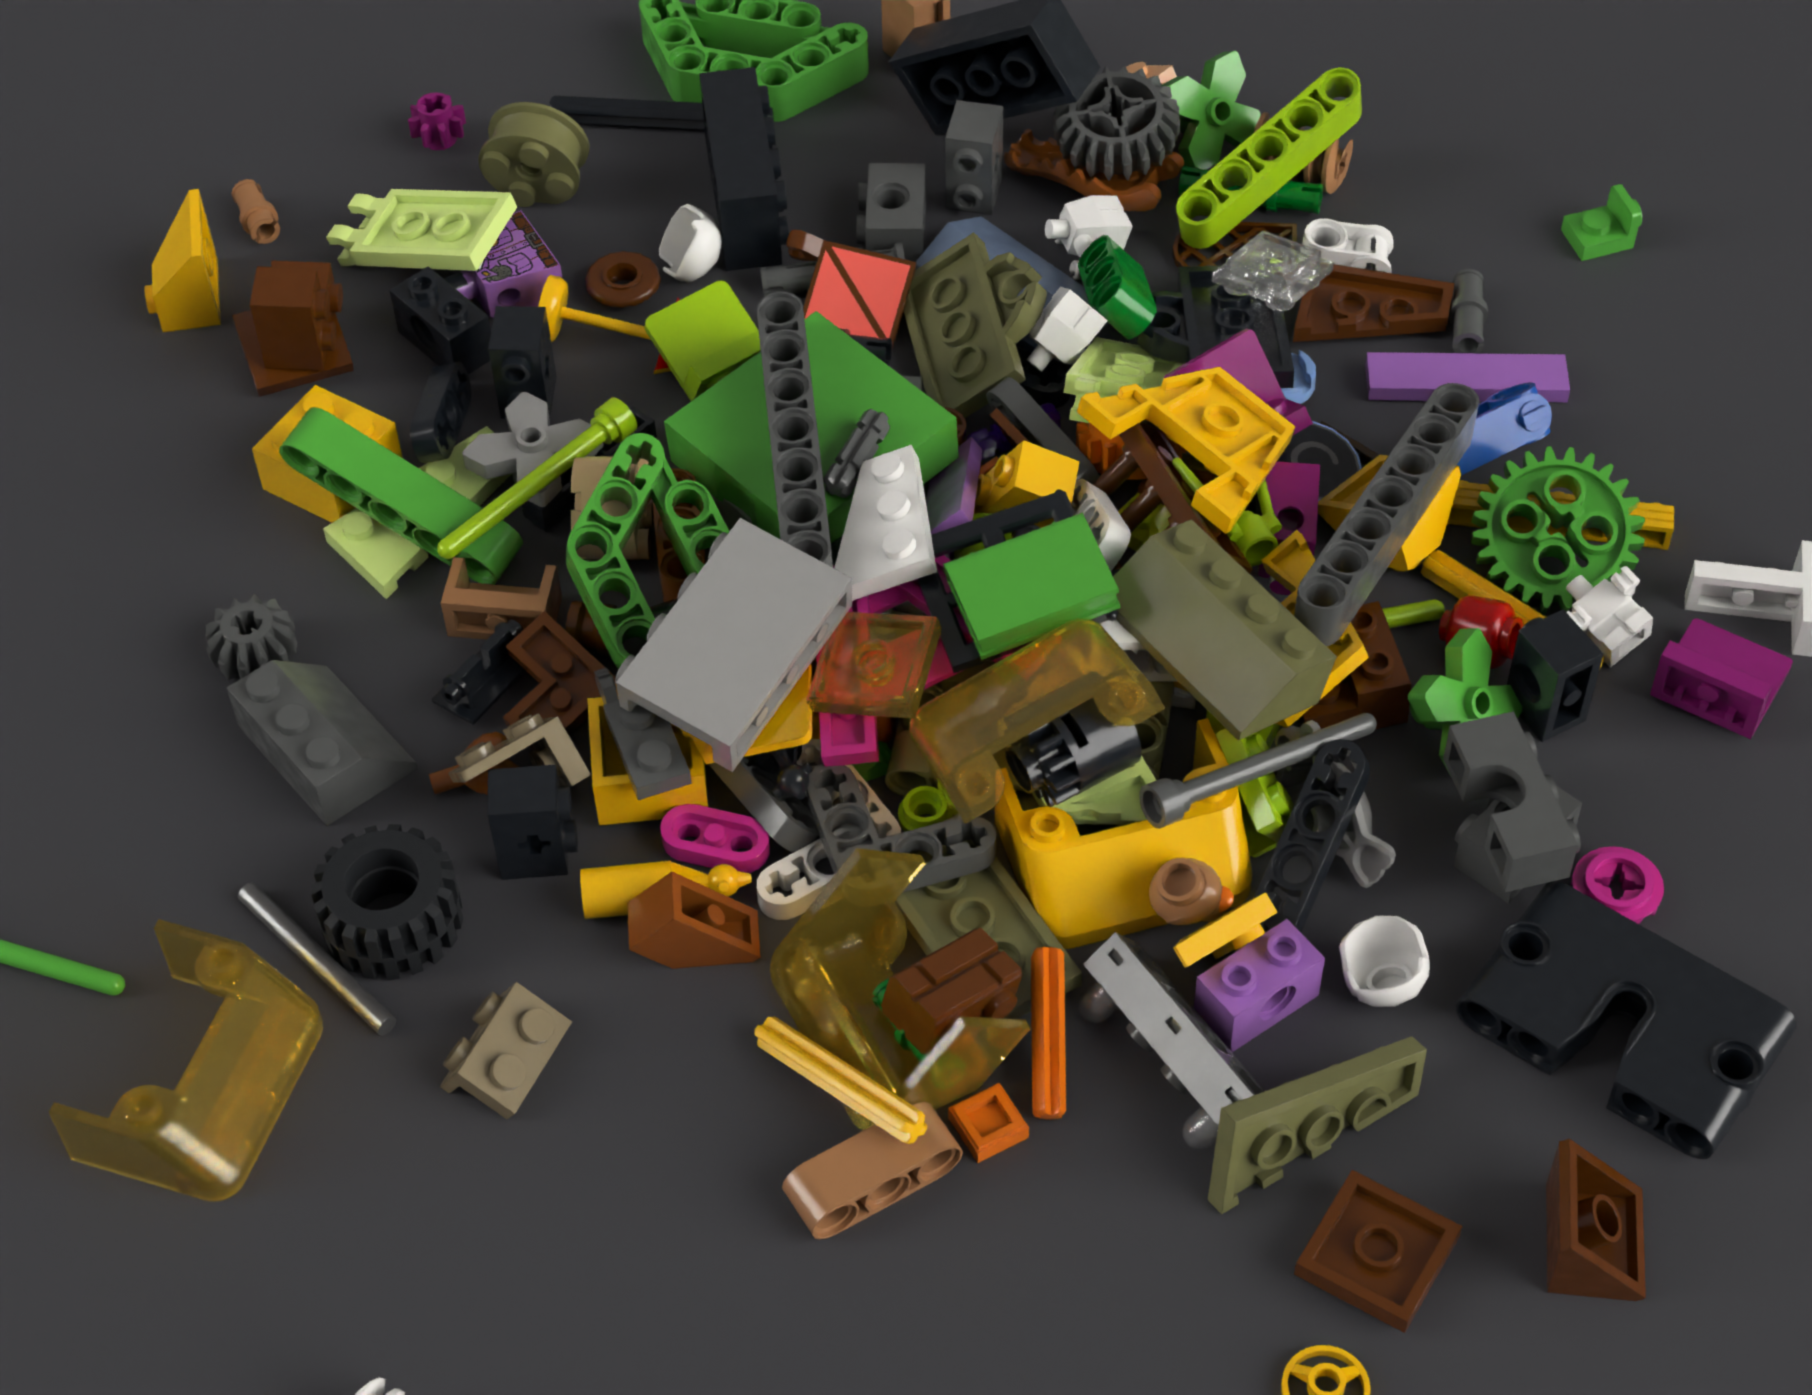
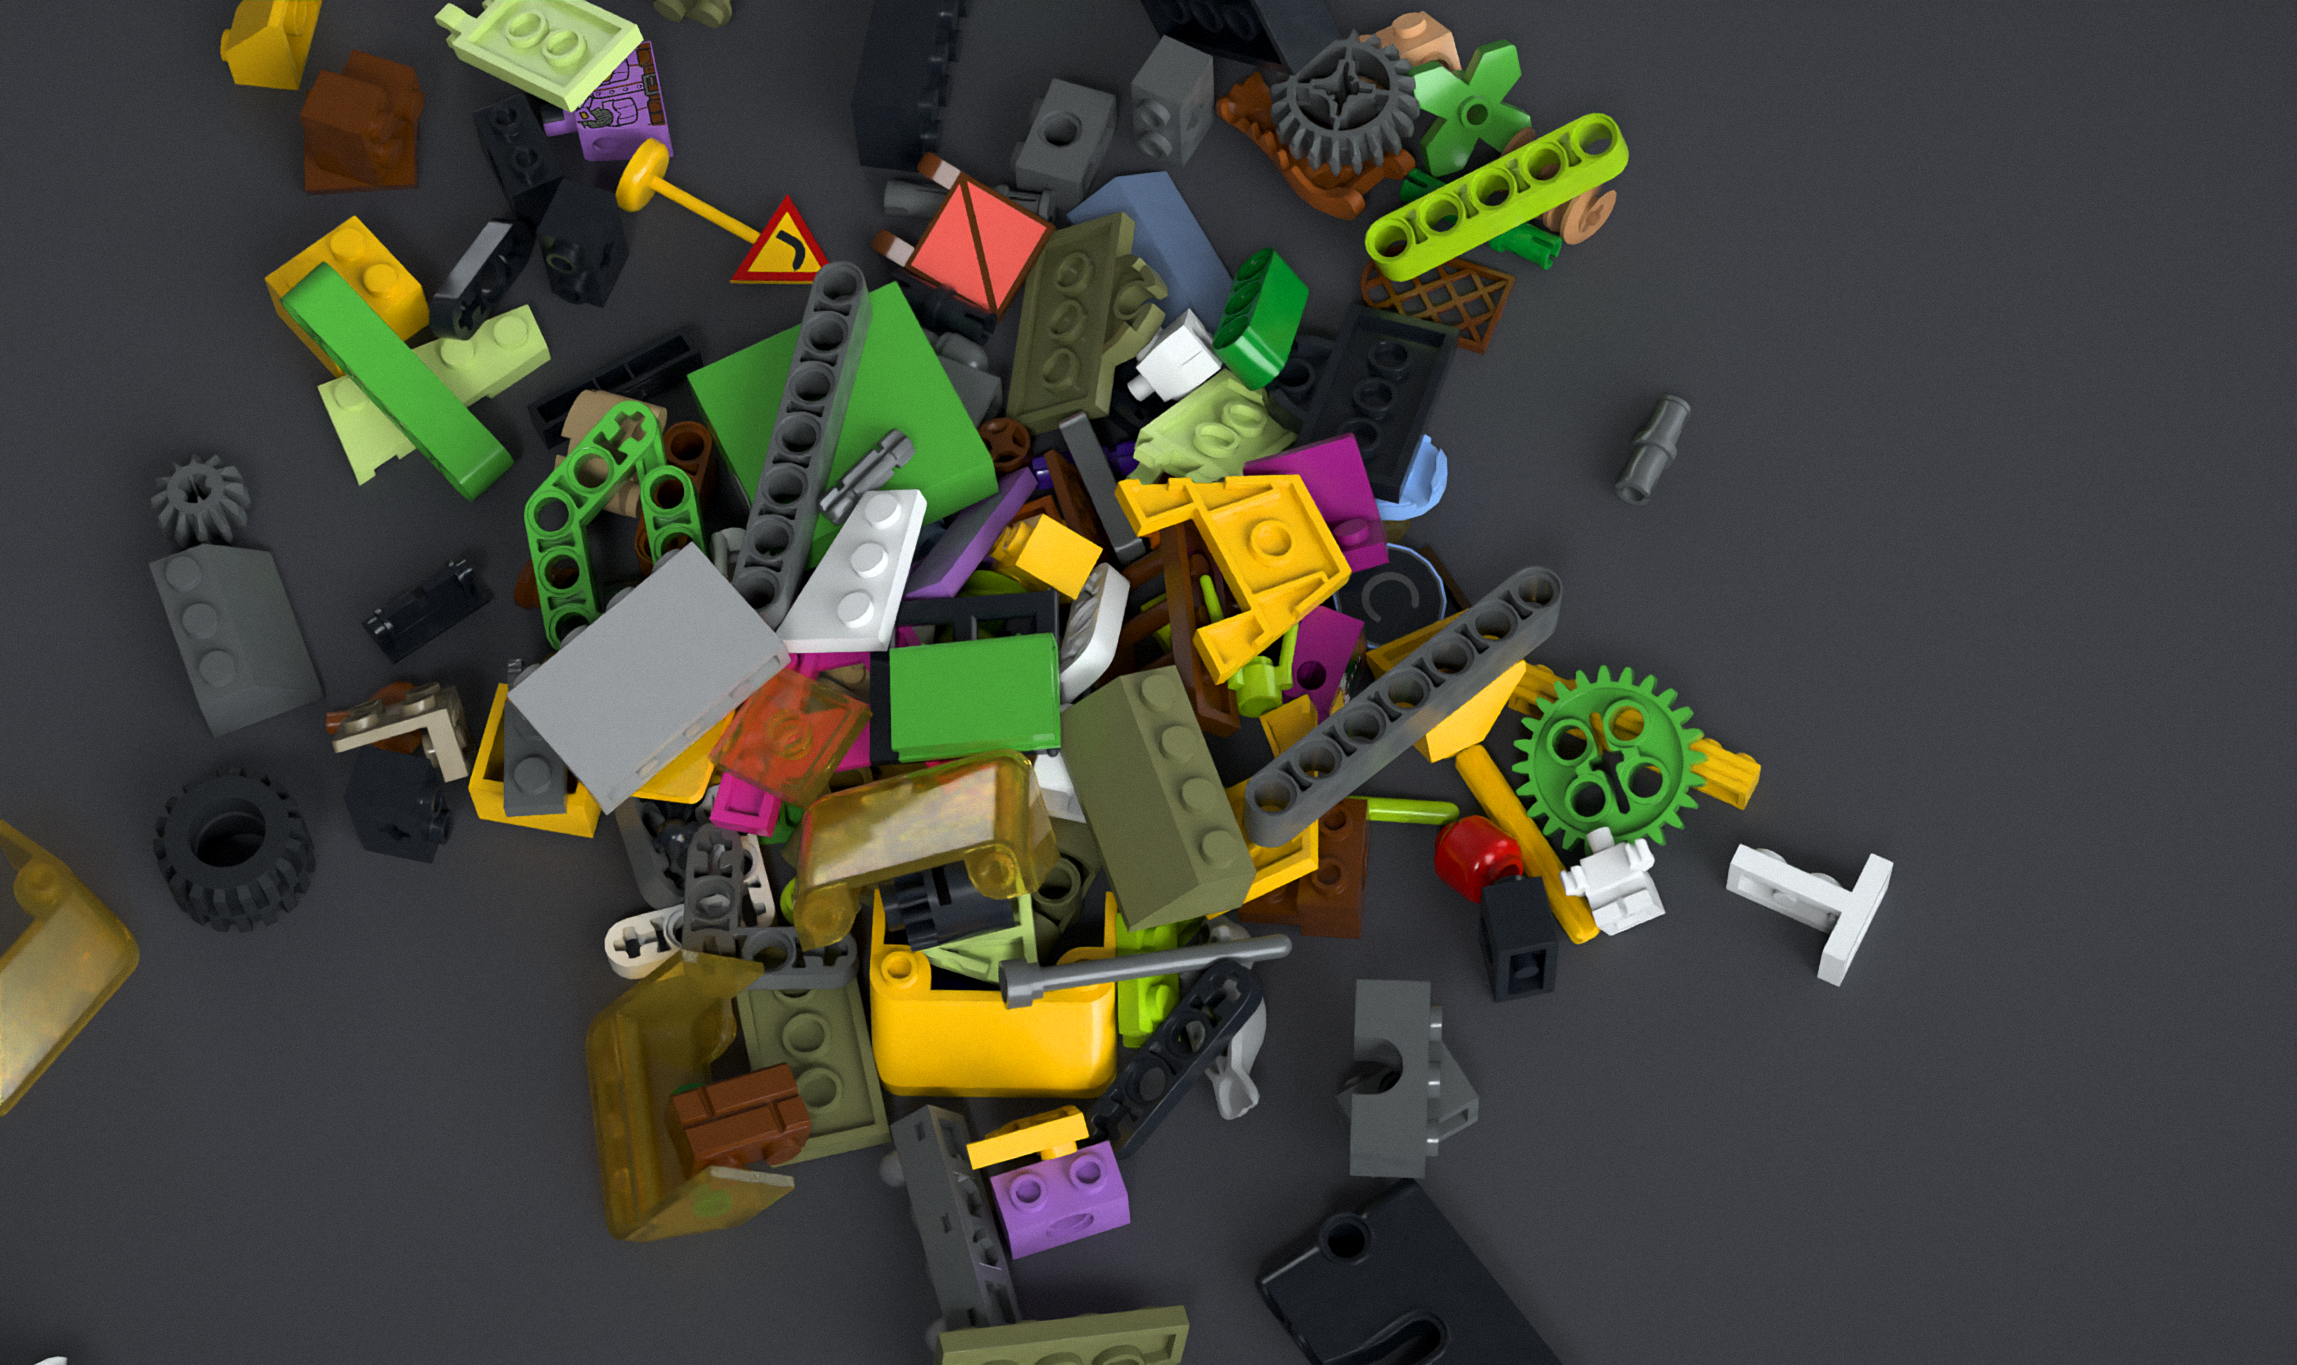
camera: 20 degrees right, 10 degrees up
(317, 959) = (153, 887): flat silver bar -> none
(476, 608) = (456, 528): medium nougat panel -> none
(506, 1050) = (298, 1045): dark tan bracket -> none
(525, 446) = (556, 356): light grey plant -> none
(560, 668) = (496, 634): reddish brown plate -> none
(611, 423) = (637, 355): lime piece -> none
(611, 887) = (501, 907): yellow wheel -> none
(619, 267) = (733, 133): reddish brown piece -> none
(690, 243) = (823, 131): white hair -> none
(691, 925) = (525, 964): dark orange slope -> none
(704, 337) = (784, 252): lime bracket -> none
(717, 835) = (588, 874): dark pink plate -> none
(841, 1080) = (601, 1180): yellow axle -> none
(868, 1174) = (602, 1281): medium nougat beam -> none
(988, 1122) = (739, 1263): orange tile -> none
(1048, 1033) = (828, 1188): orange axle -> none
(1087, 220) = (1271, 220): white piece -> none
(1188, 892) = (1025, 1079): medium nougat animal -> none
(1273, 271) = (1440, 366): clear piece -> none
(1350, 243) = (1552, 338): white piece -> none
(1372, 304) = (1544, 407): reddish brown wing -> none
(1384, 961) = (1199, 1212): white hair -> none
(1419, 374) = (1617, 532): medium lavender tile -> none
(1464, 691) = (1412, 934): bright green plant -> none
(1506, 423) = (1608, 613): piece -> none
(1604, 228) = (1864, 377): bright green bracket -> none
(1638, 879) = (1478, 1171): dark pink gear -> none
(1720, 677) = (1716, 985): magenta bracket -> none

